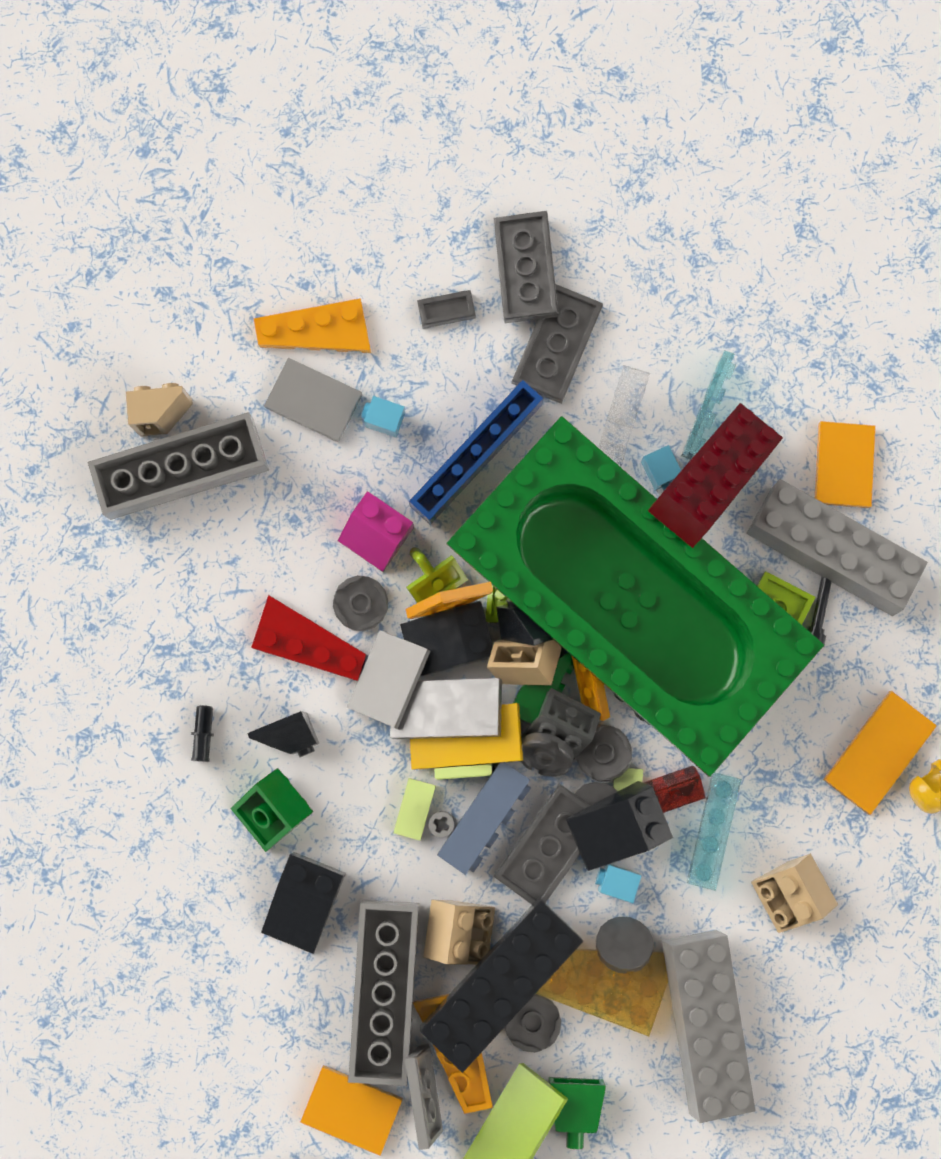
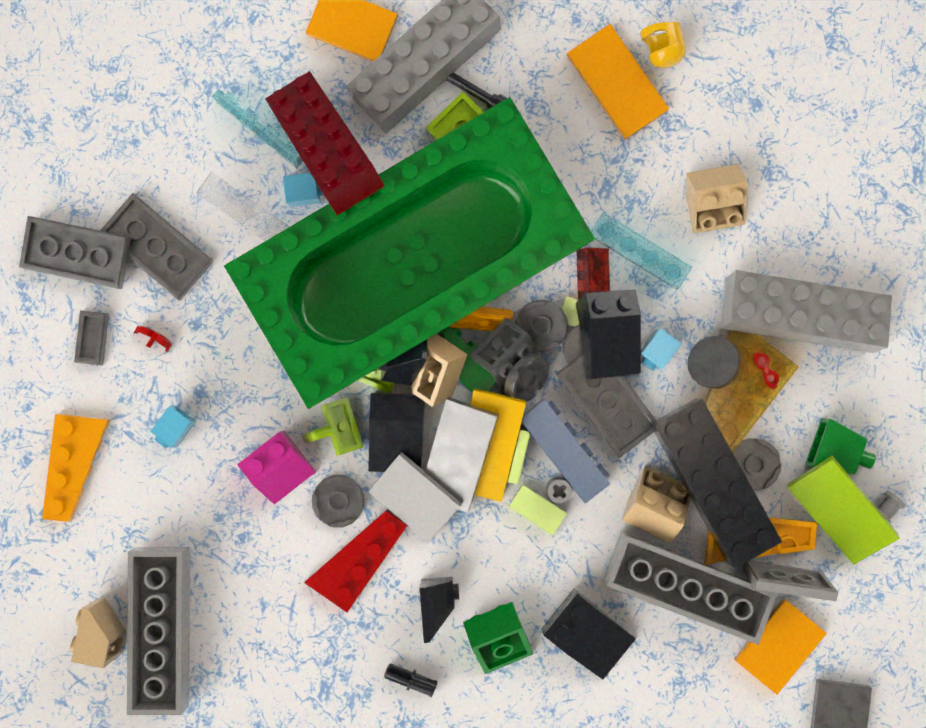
camera: 70 degrees left, 5 degrees up
(313, 400) = (136, 486): light grey tile -> none
(449, 599) = (360, 421): light orange tile -> none
(468, 369) = (154, 336): none -> red piece
(476, 452) = (233, 353): blue brick -> none
(640, 995) = (769, 376): none -> red piece

